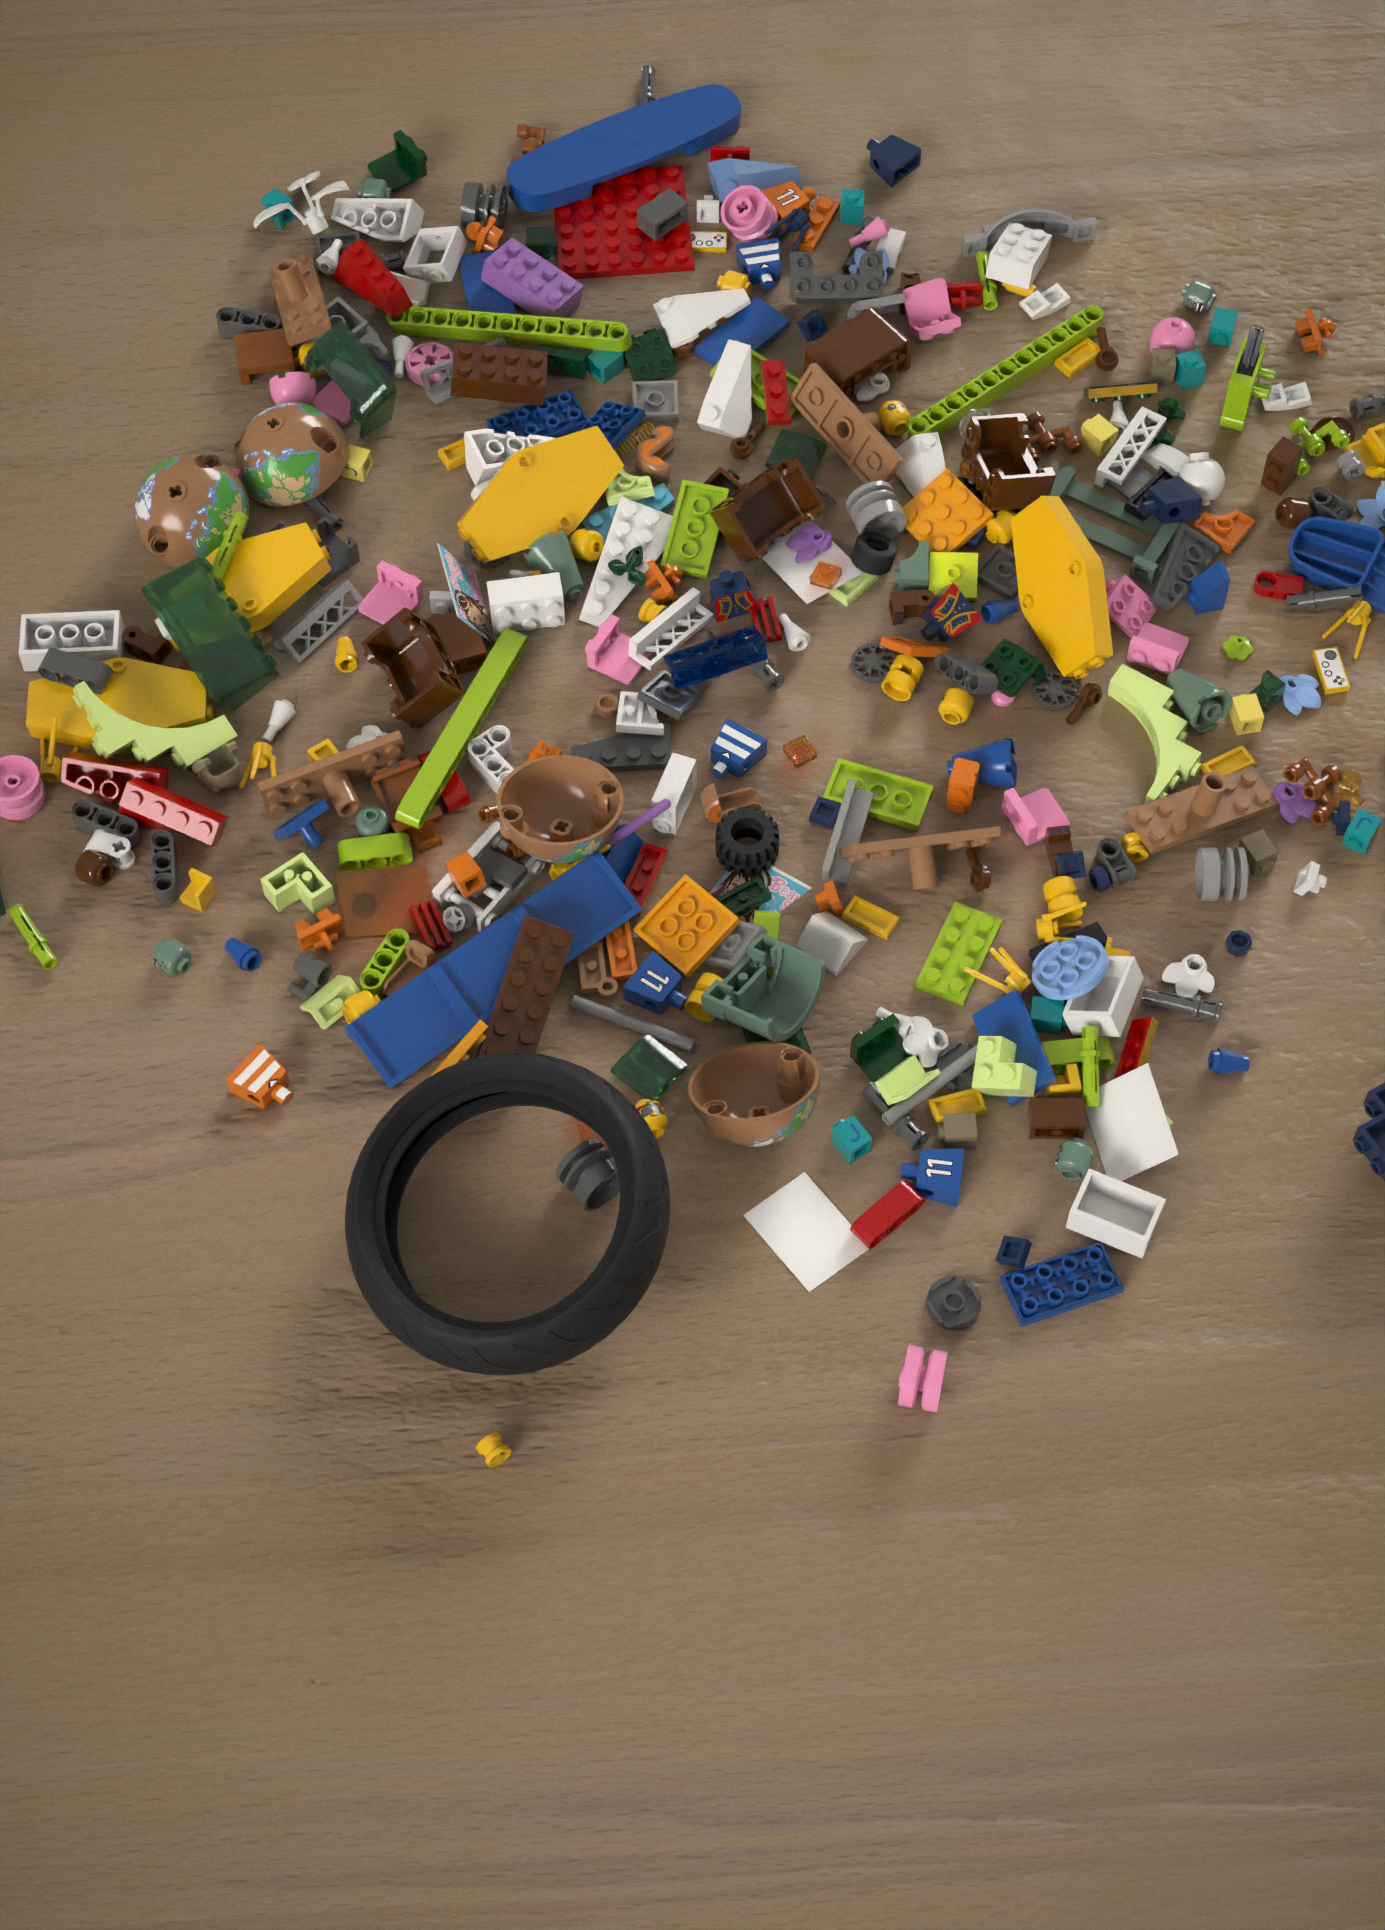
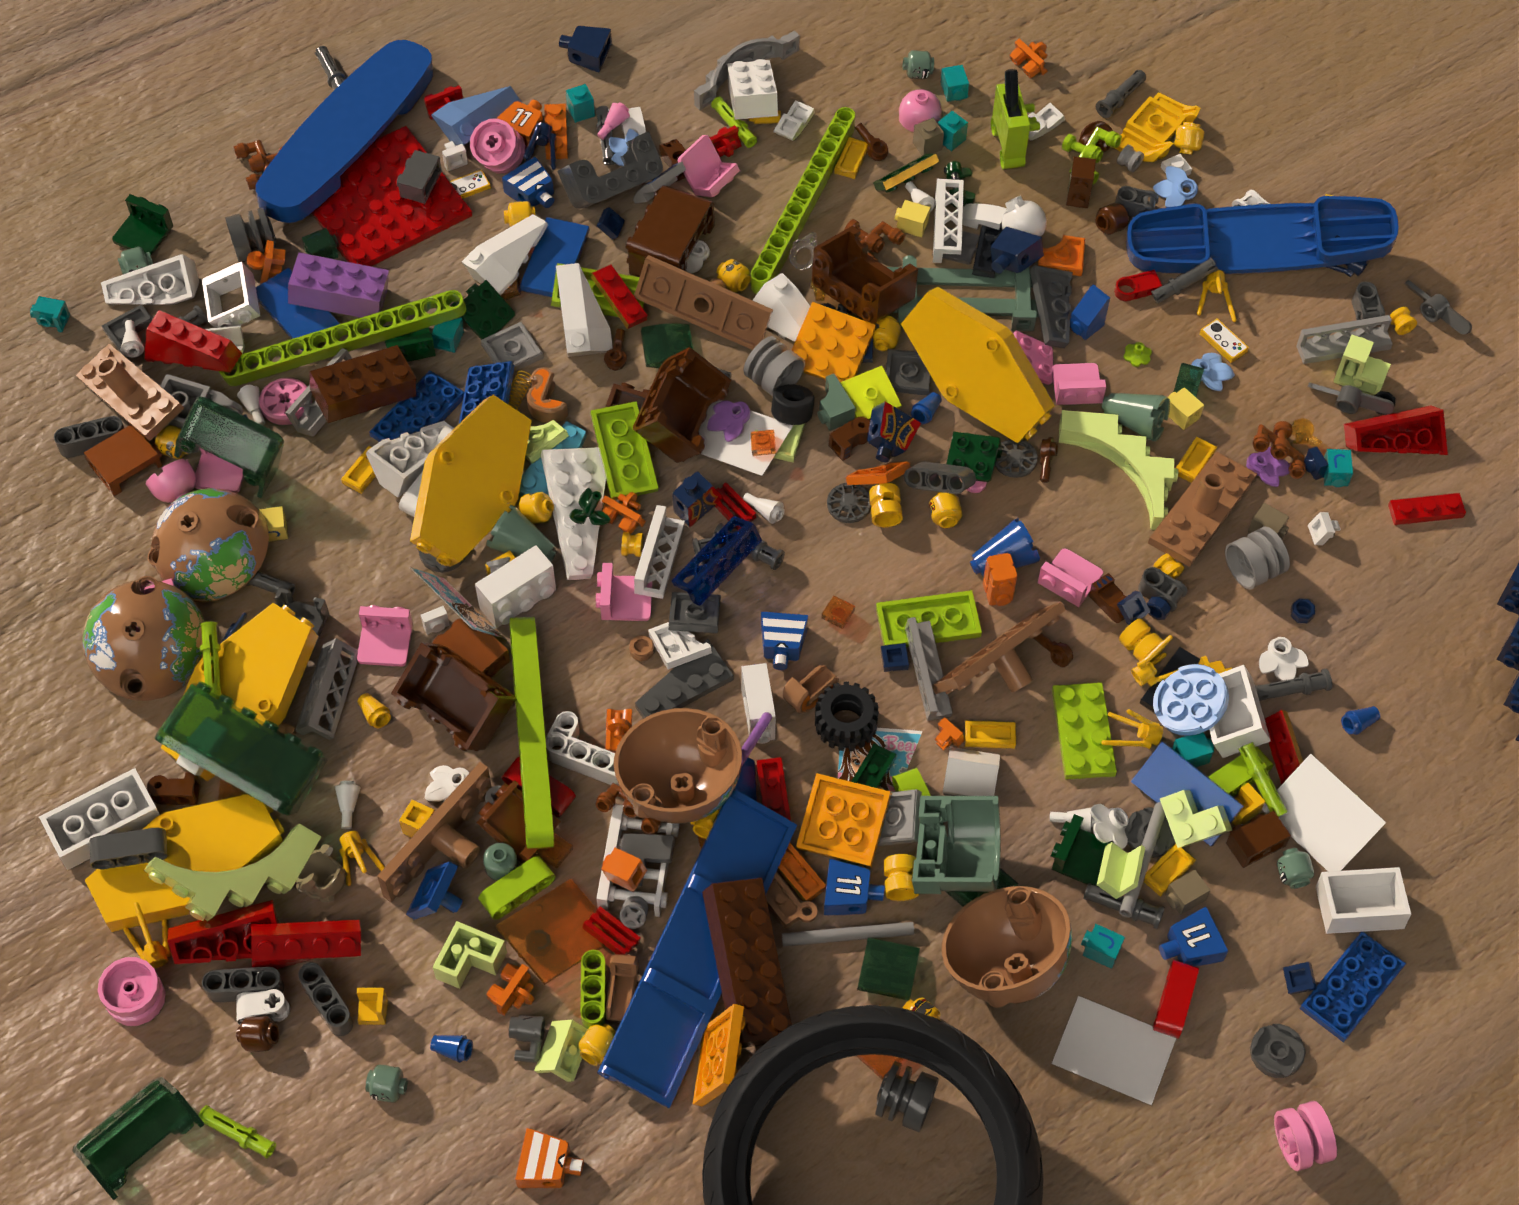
camera: 30 degrees left, 0 degrees up
(314, 216) = (91, 308): white plant -> none

